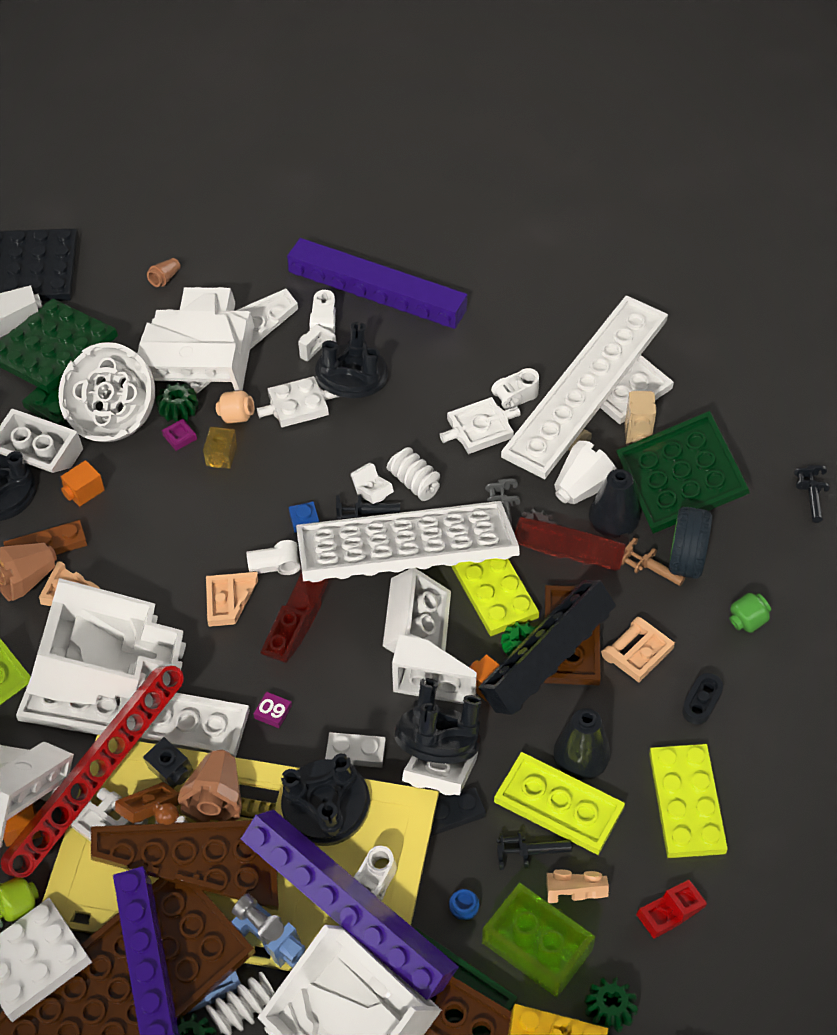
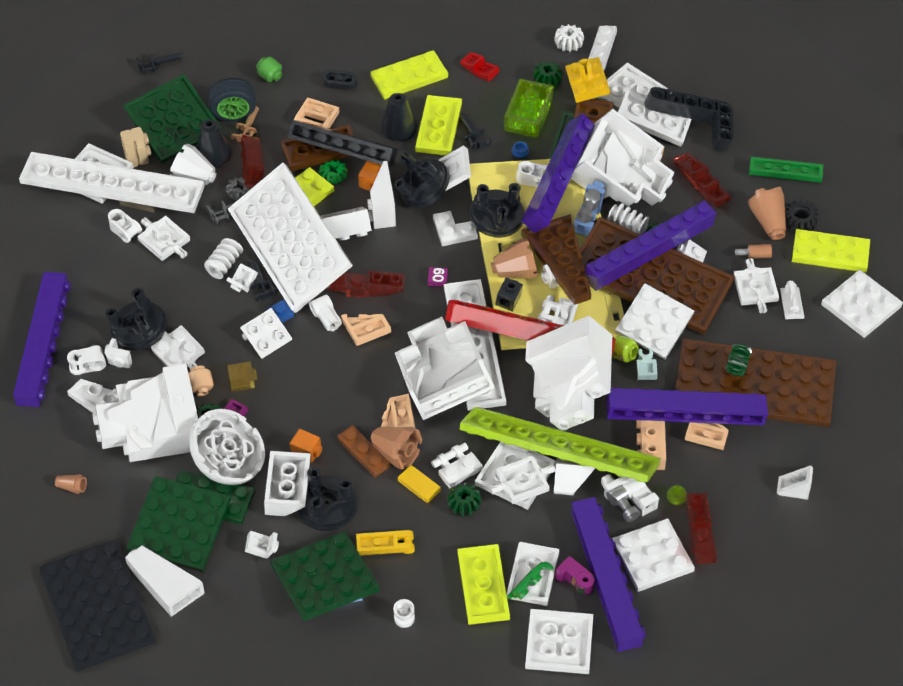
camera: 110 degrees left, 0 degrees up
(155, 800) = (543, 289): dark orange plate -> none
(273, 489) = (265, 333): none -> white hinge
(580, 886) = (490, 103): light nougat wing -> none

